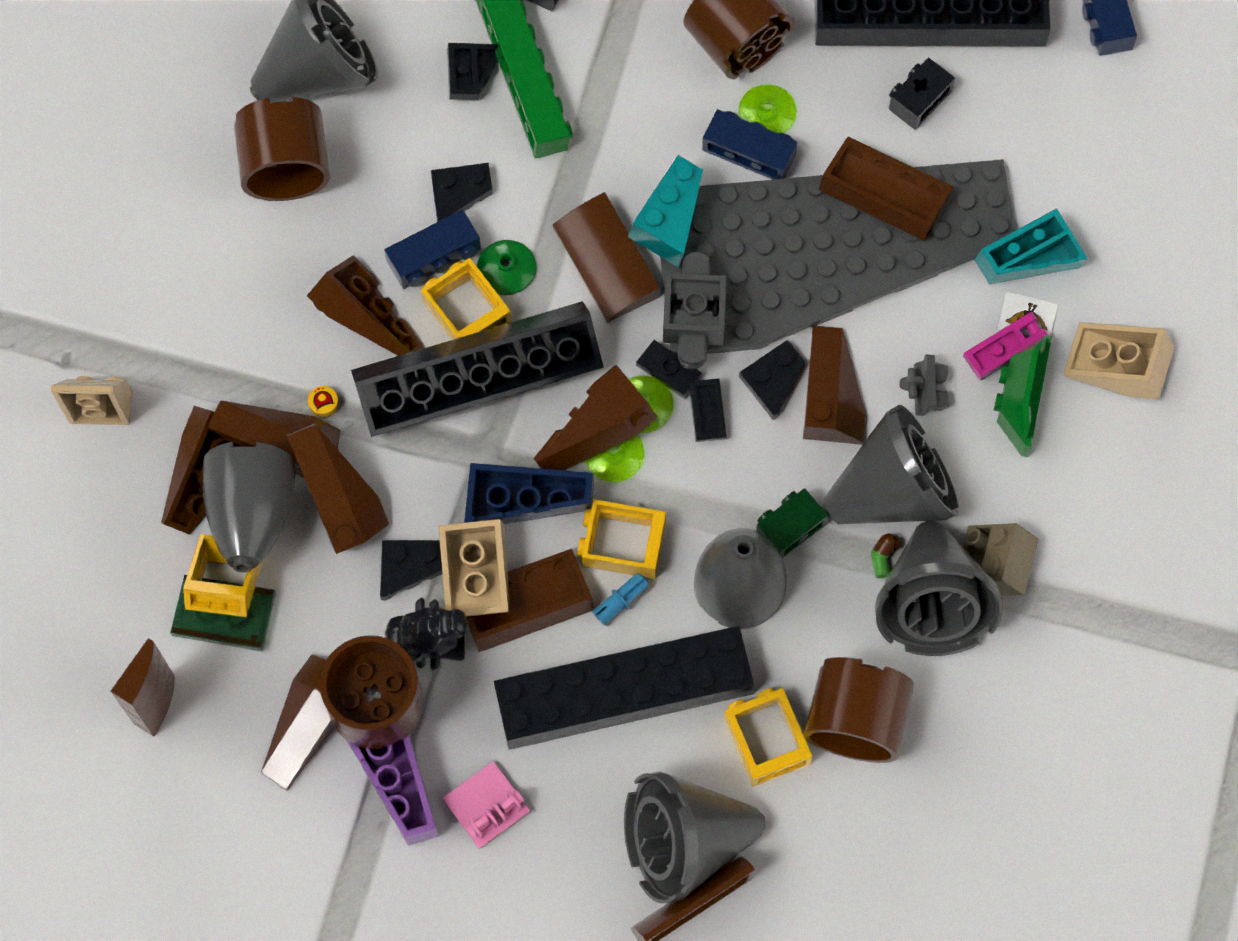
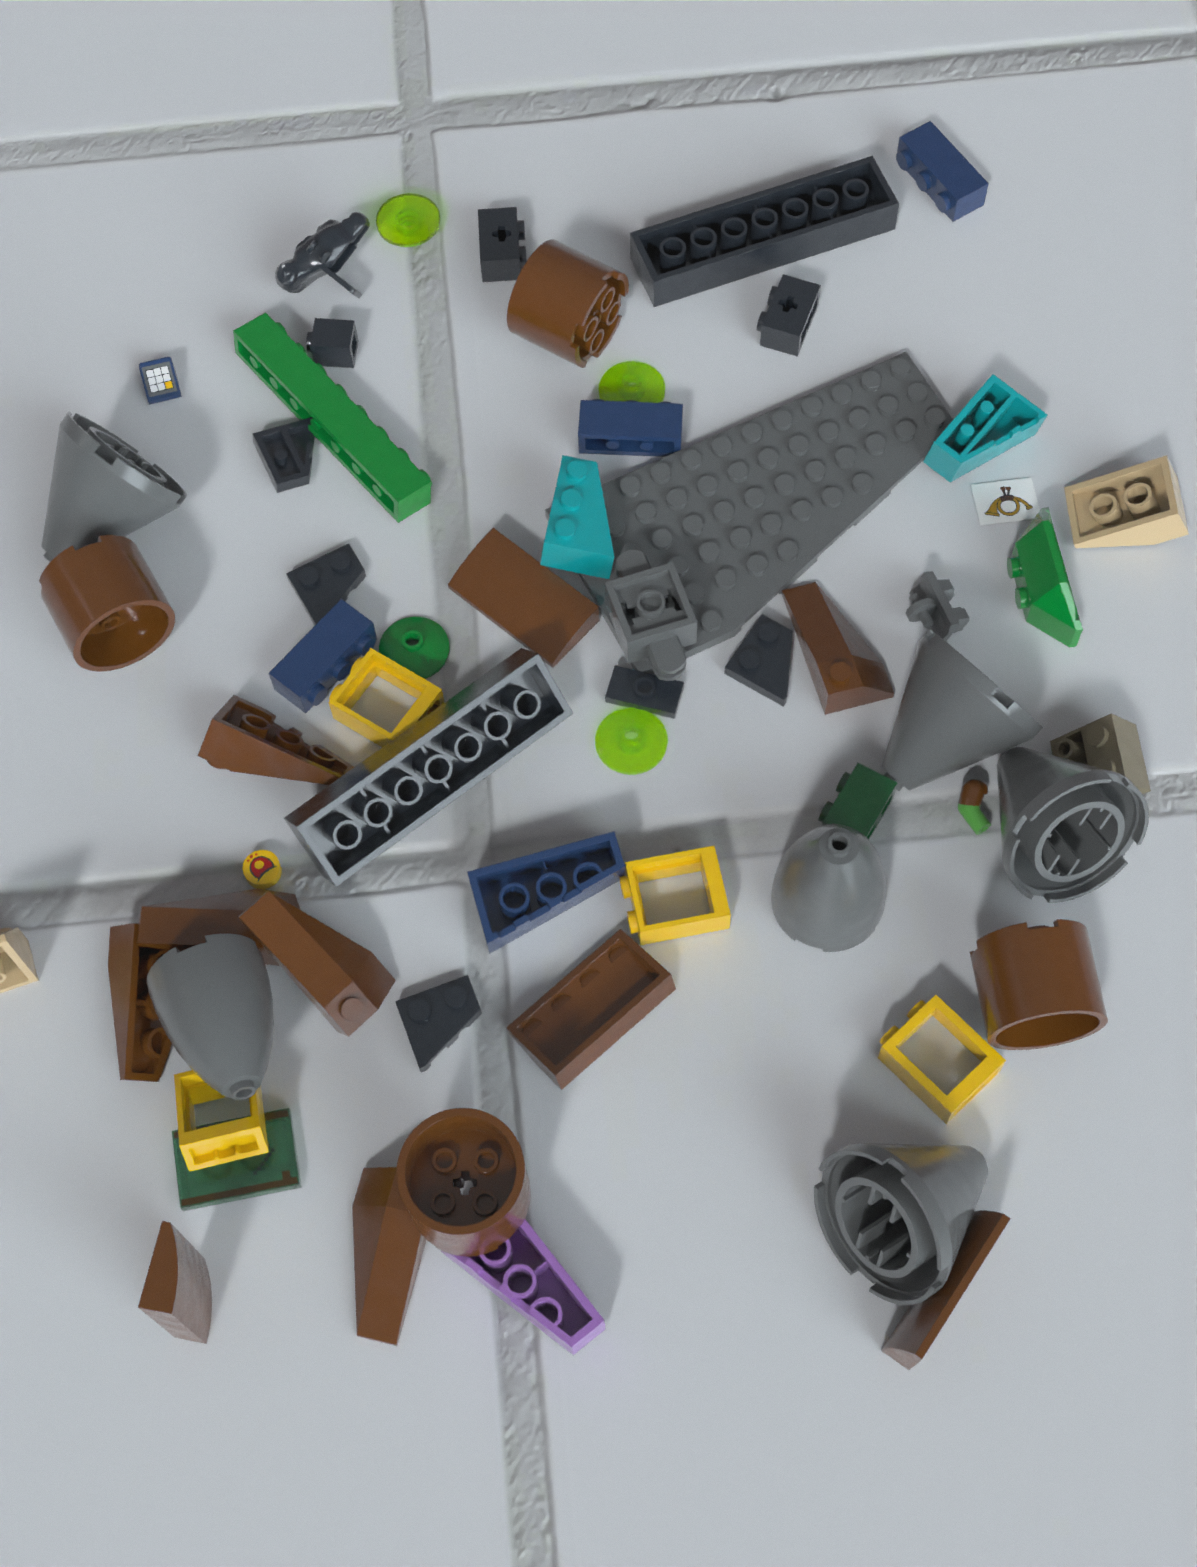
camera: 20 degrees left, 5 degrees down
(429, 633) = (500, 1084): black piece -> none
(475, 567) = (520, 992): tan slope -> none
(486, 804) = (647, 1268): bright pink hinge -> none
(605, 419) = (604, 765): reddish brown wedge -> none
(619, 465) = (626, 820): clear neon green dish -> none
(620, 599) = (702, 965): dark azure axle -> none
(624, 687) = (749, 1065): black brick -> none
(707, 410) = (708, 720): black plate -> none
(885, 188) = (798, 419): reddish brown slope -> none
(999, 348) = (998, 539): dark pink plate -> none

